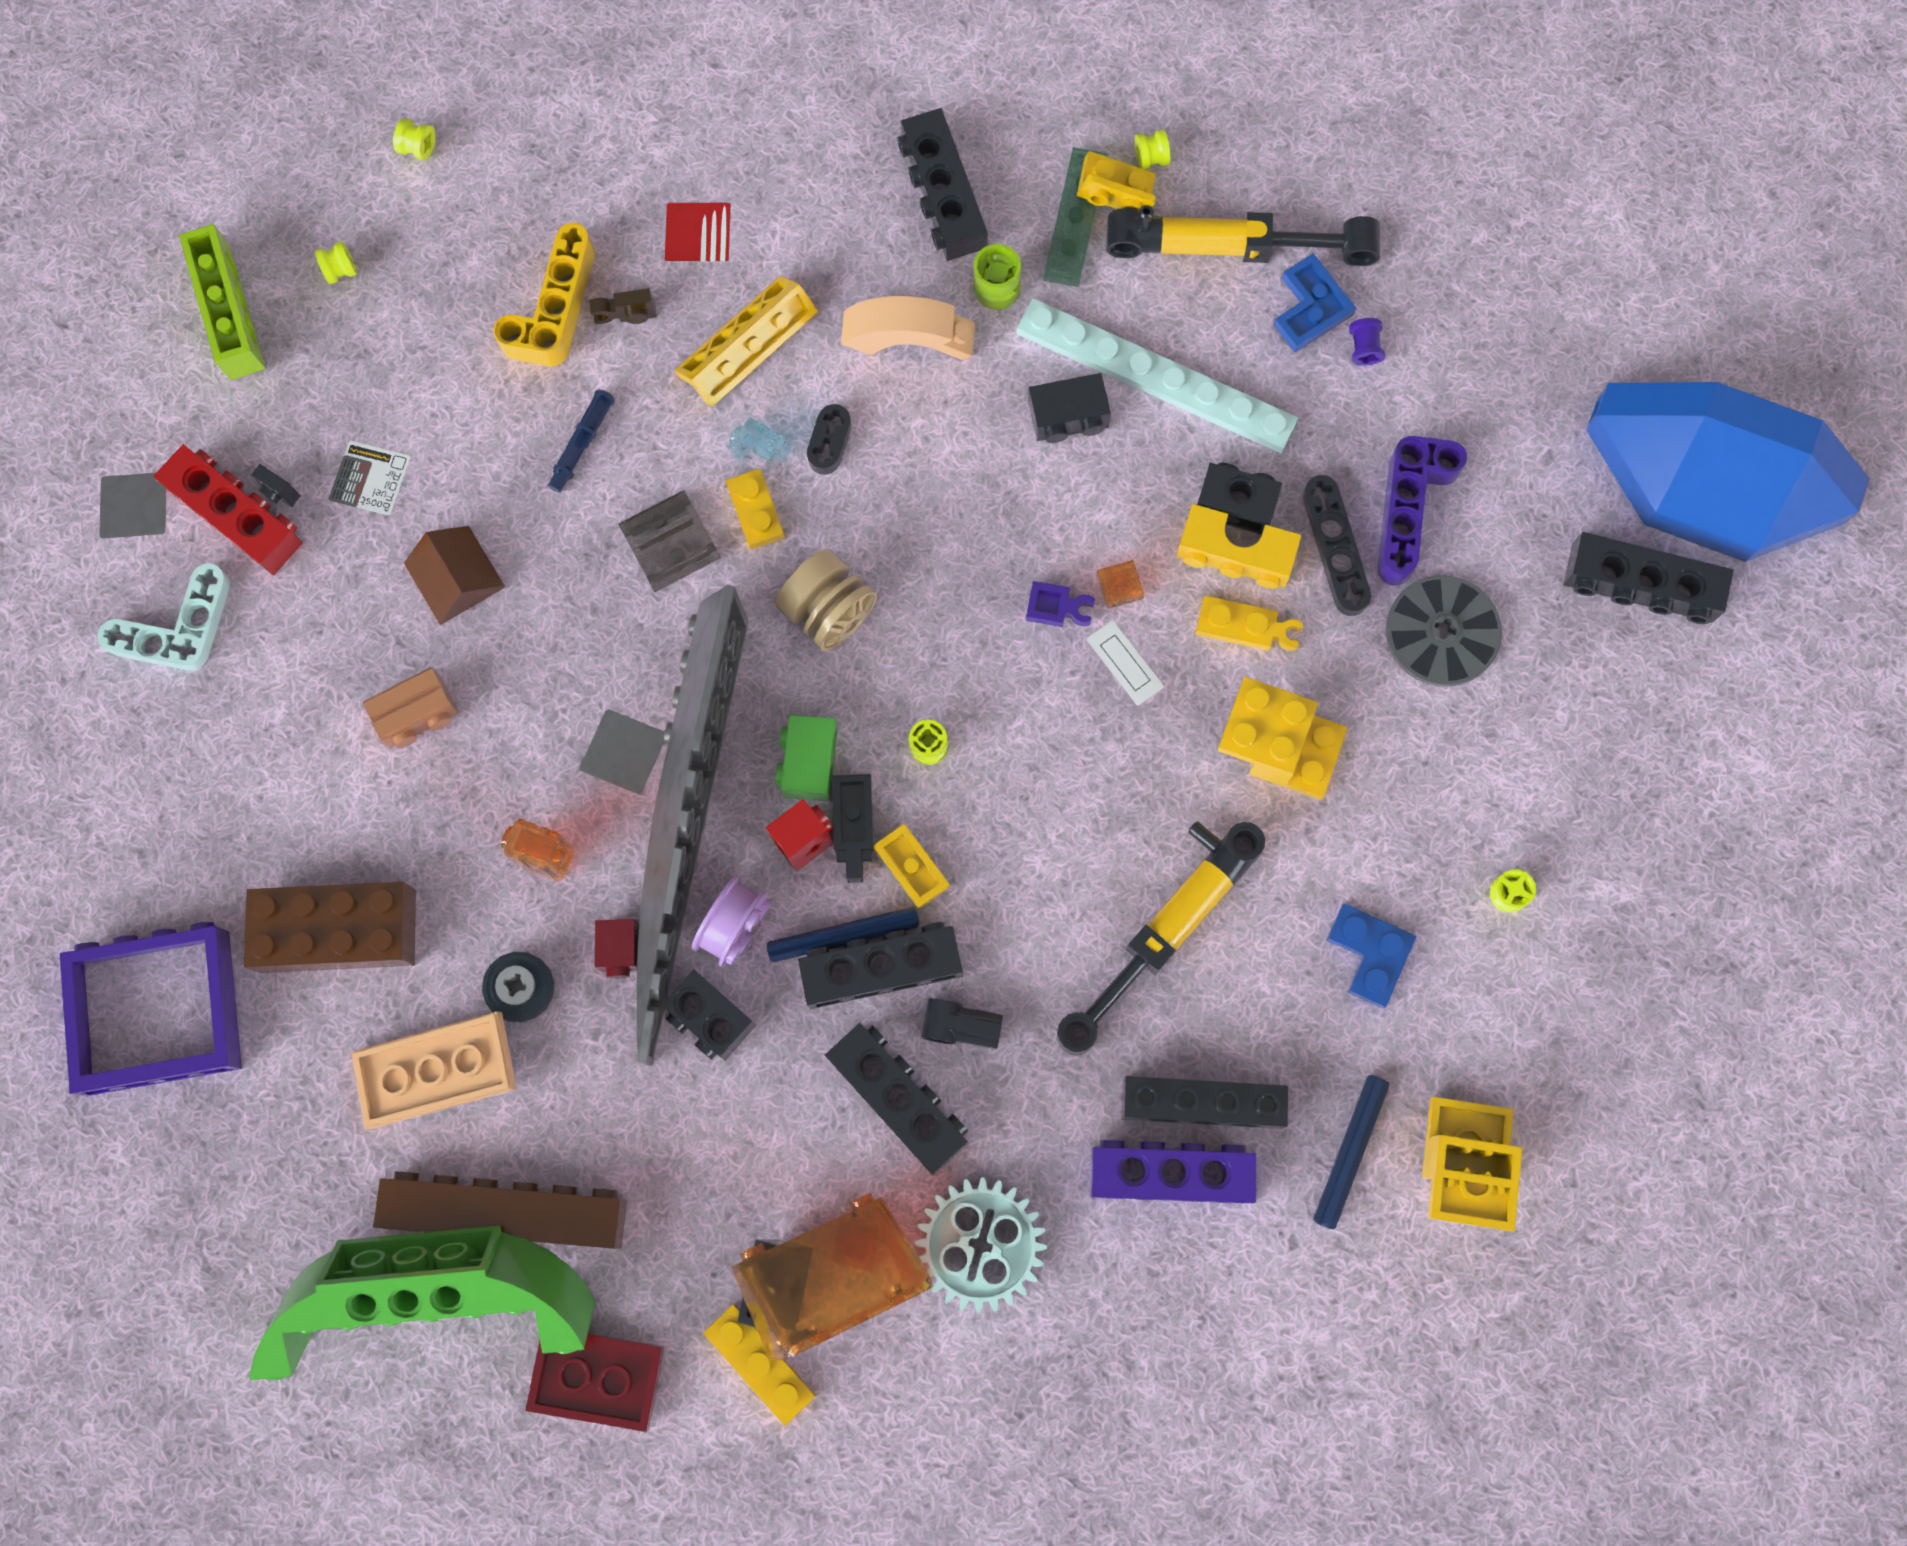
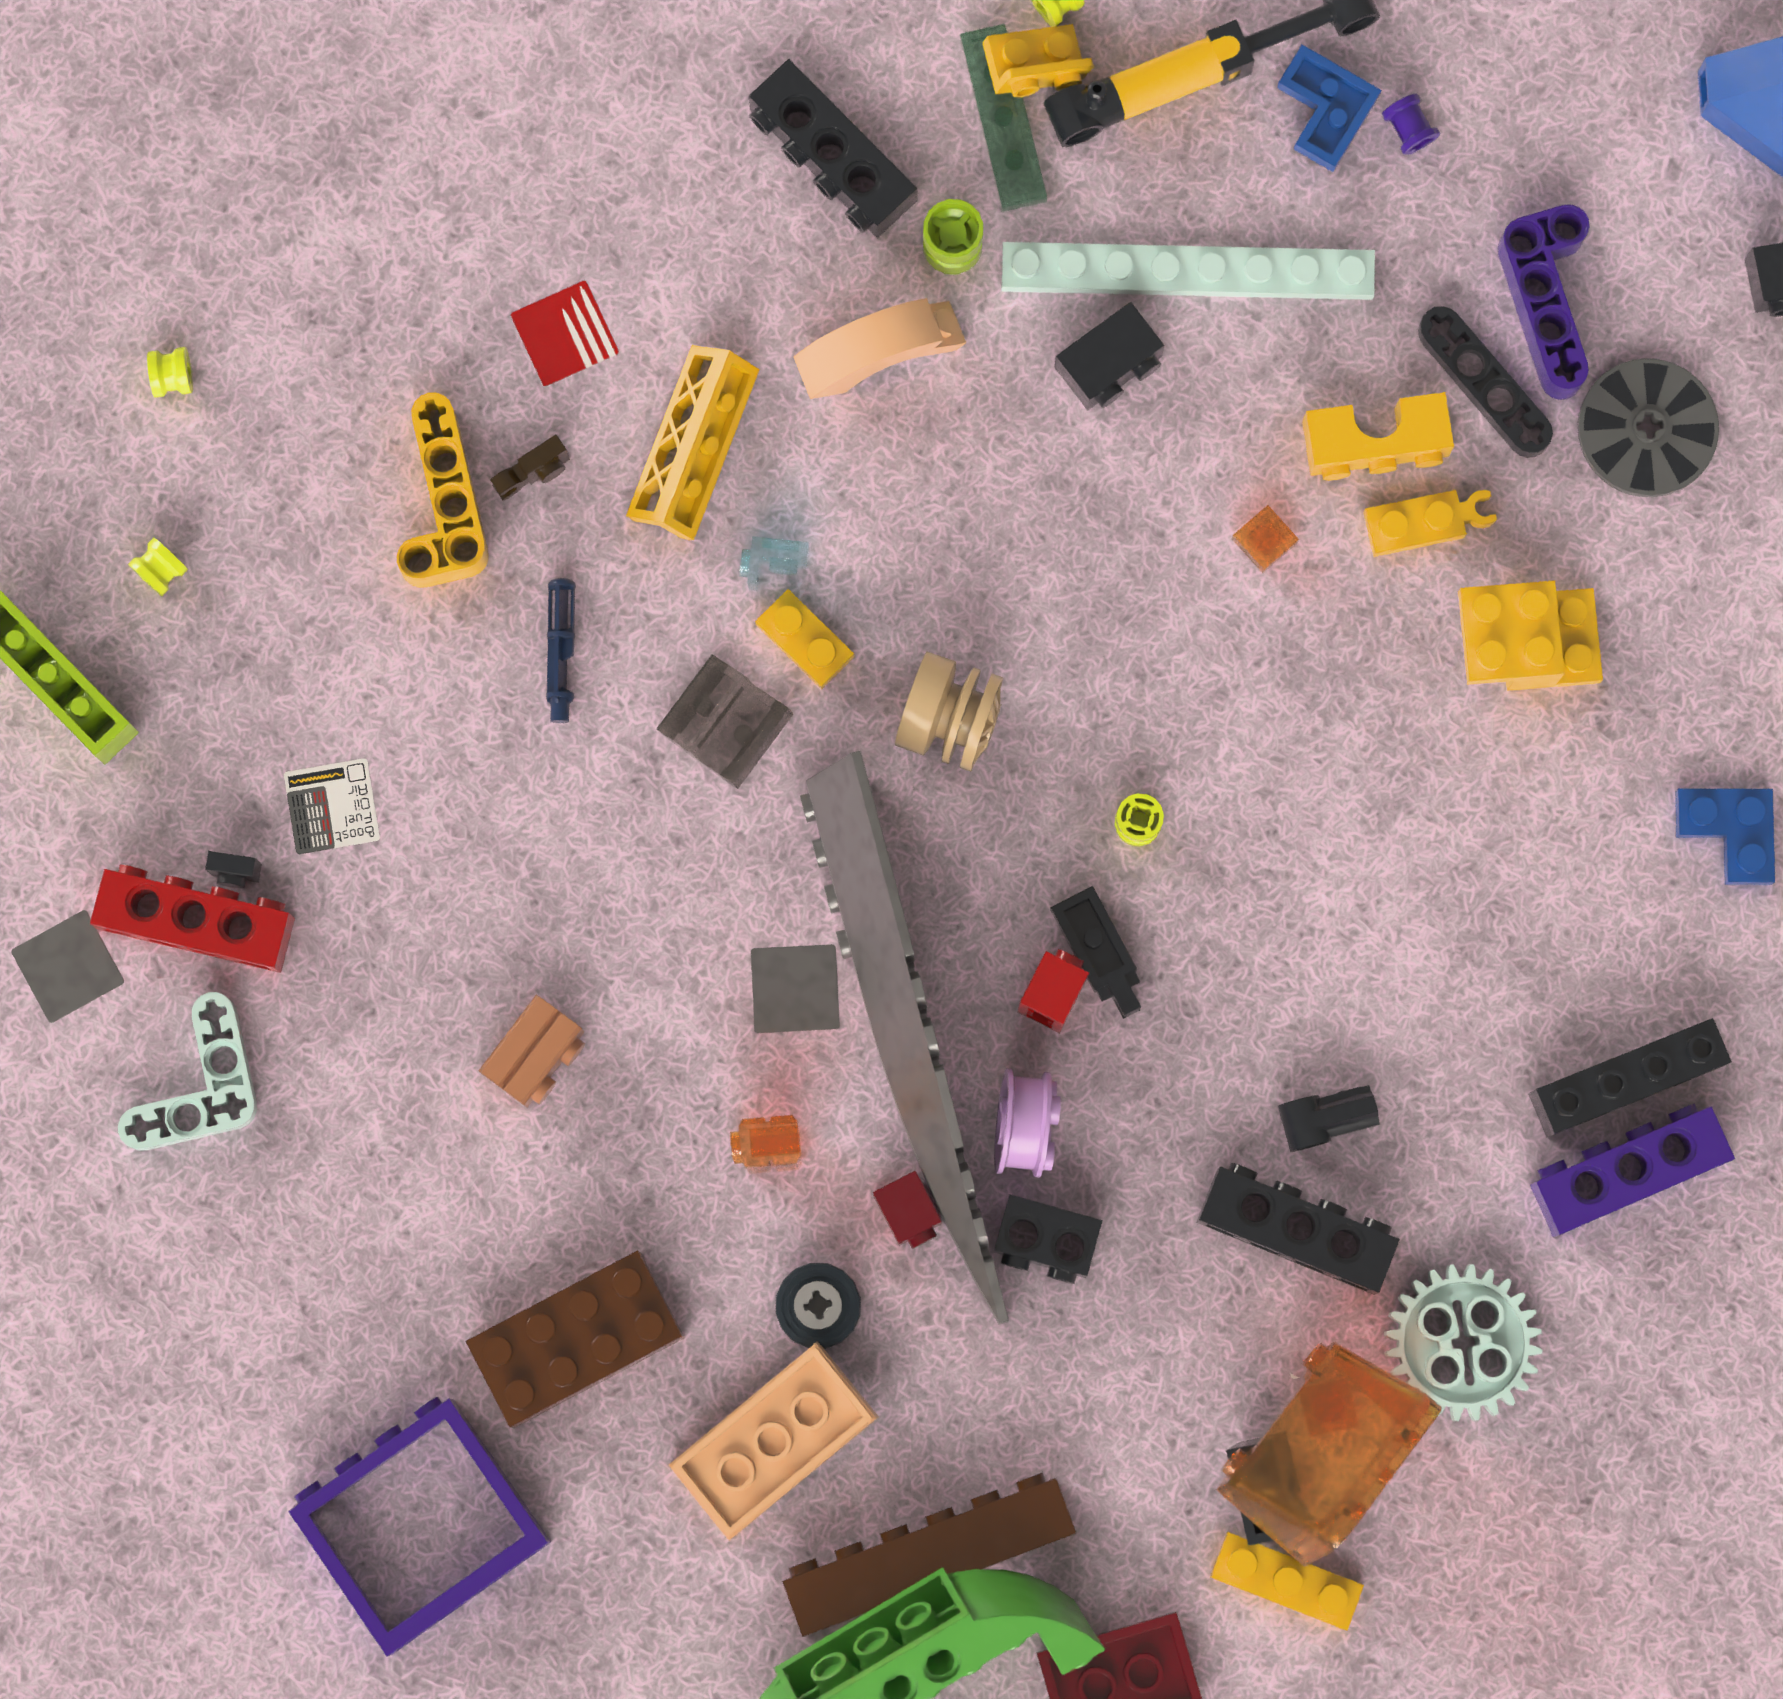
camera: 30 degrees left, 5 degrees up
(452, 571) = (493, 874): reddish brown slope -> none
(808, 757) = (1013, 900): bright green brick -> none
(821, 437) = (838, 519): black beam -> none
(824, 991) = (1275, 1059): black brick -> none
(839, 934) = (1148, 1079): dark blue axle -> none
(911, 866) = (1187, 968): yellow plate -> none
(1051, 604) = (1200, 598): dark purple plate -> none
(1125, 662) = (1310, 625): white sticker -> none
(1173, 922) = (1505, 897): black piece -> none
(1258, 487) = (1371, 356): black brick -> none

